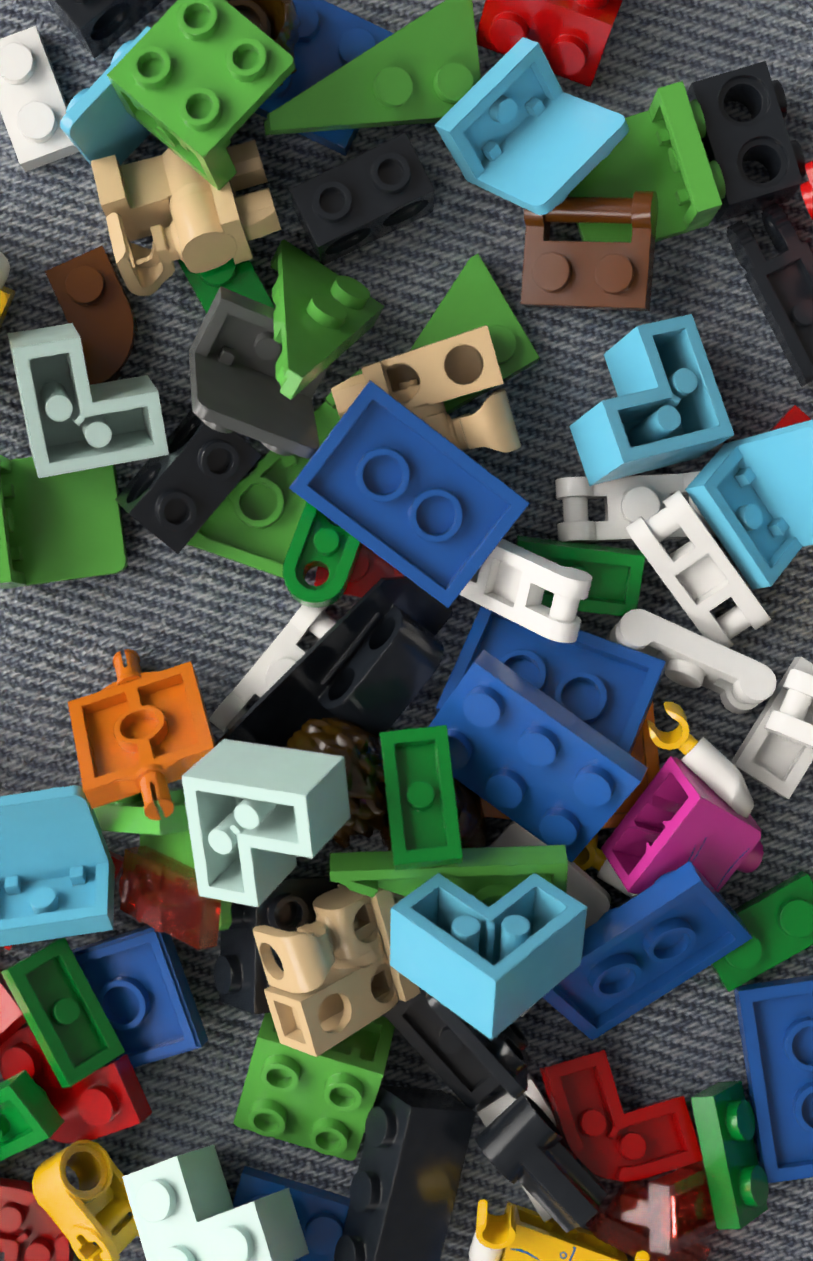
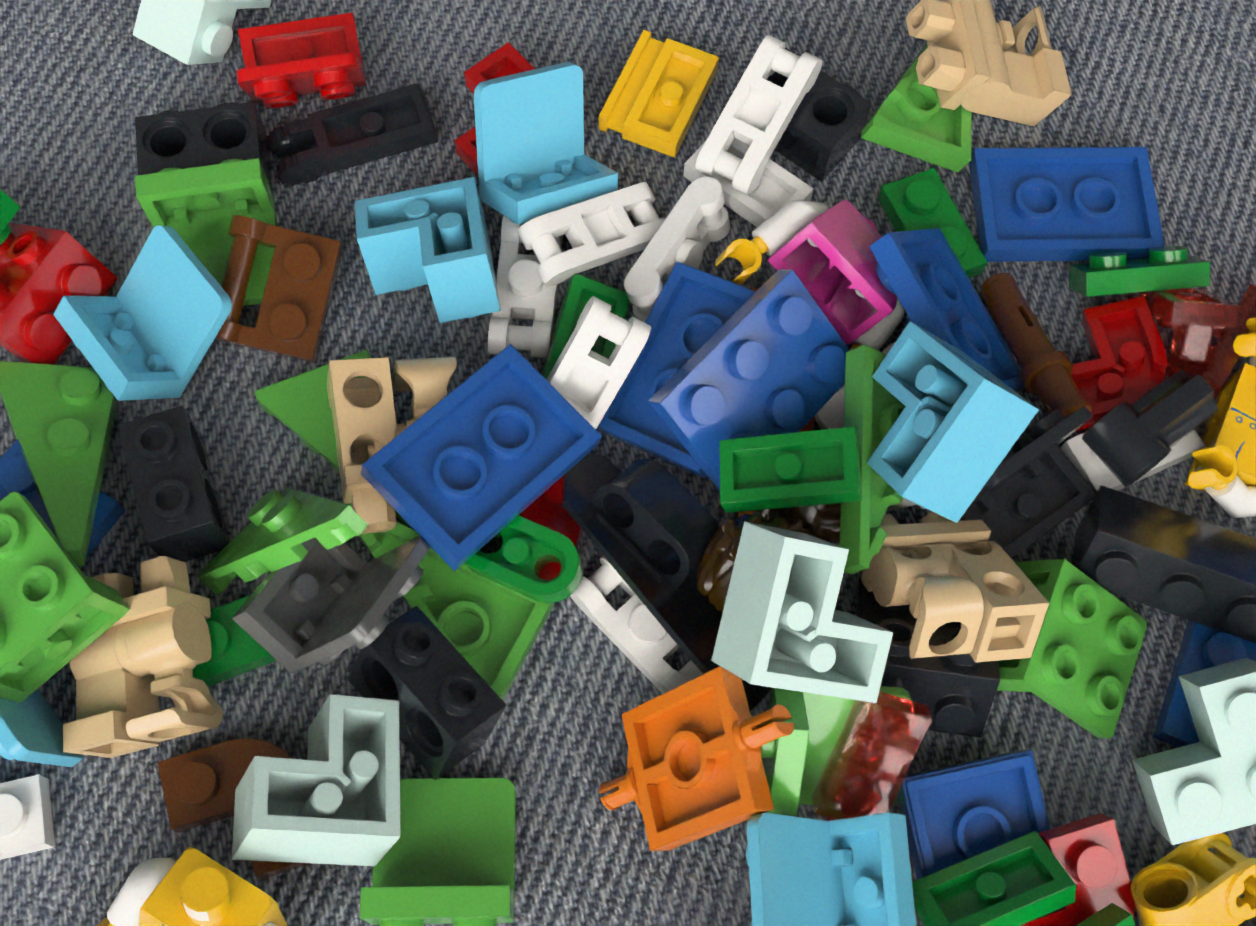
camera: 85 degrees left, 20 degrees down
(598, 1052) = (1043, 368): none -> reddish brown pin

